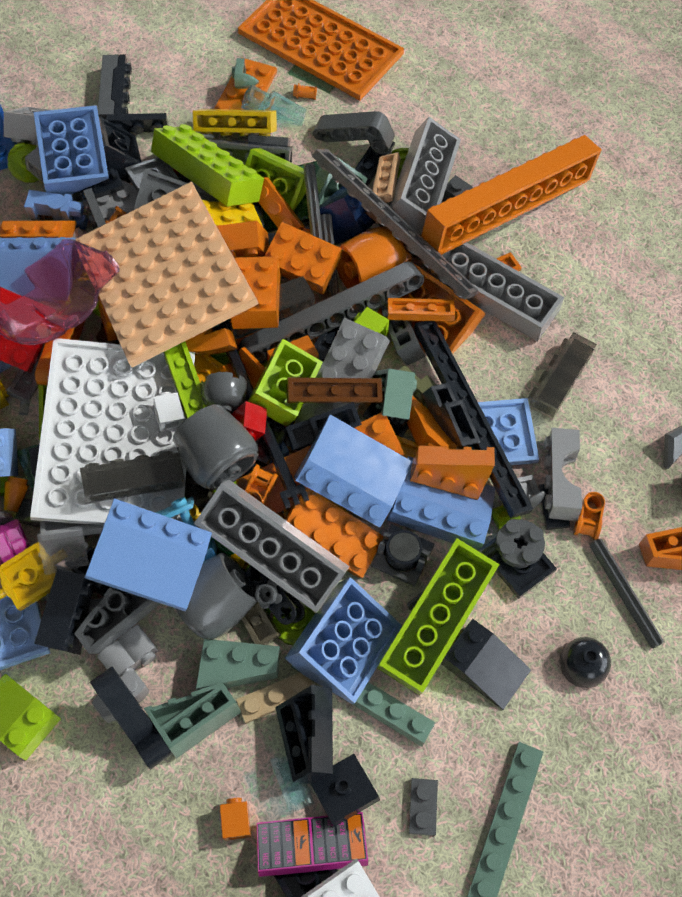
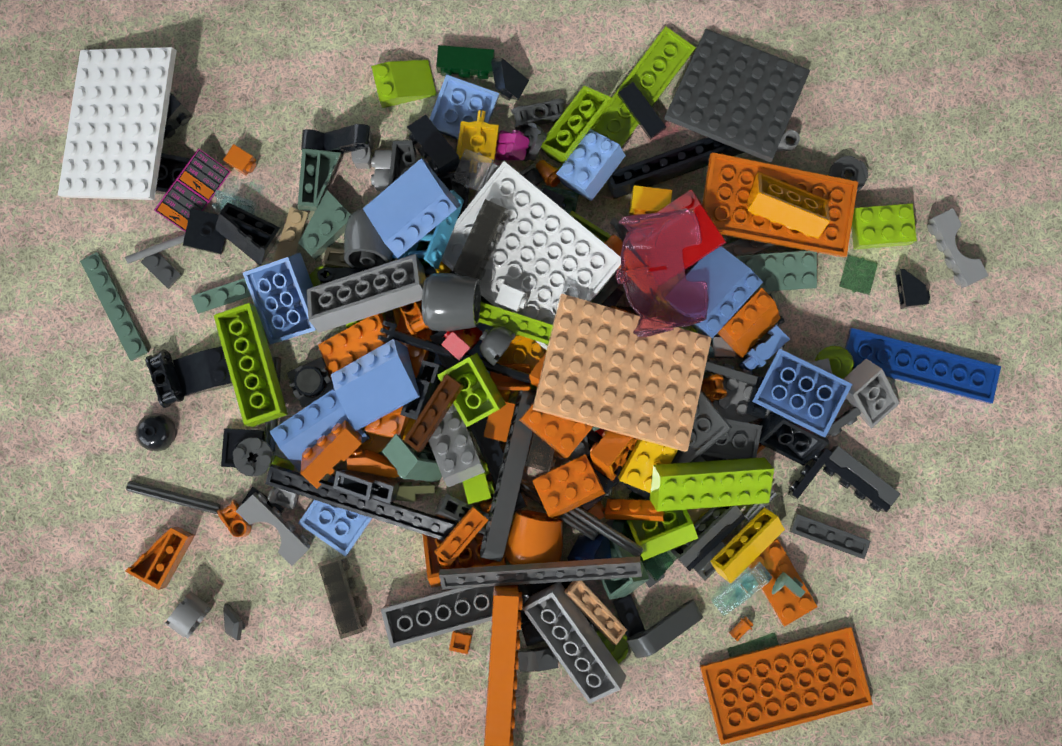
camera: 130 degrees right, 20 degrees up
(178, 82) = (830, 536): none -> dark grey plate
(261, 594) = (343, 269): dark grey plate -> none
(407, 827) = (155, 249): none -> light grey bar
(520, 712) = (165, 388): none -> black piece

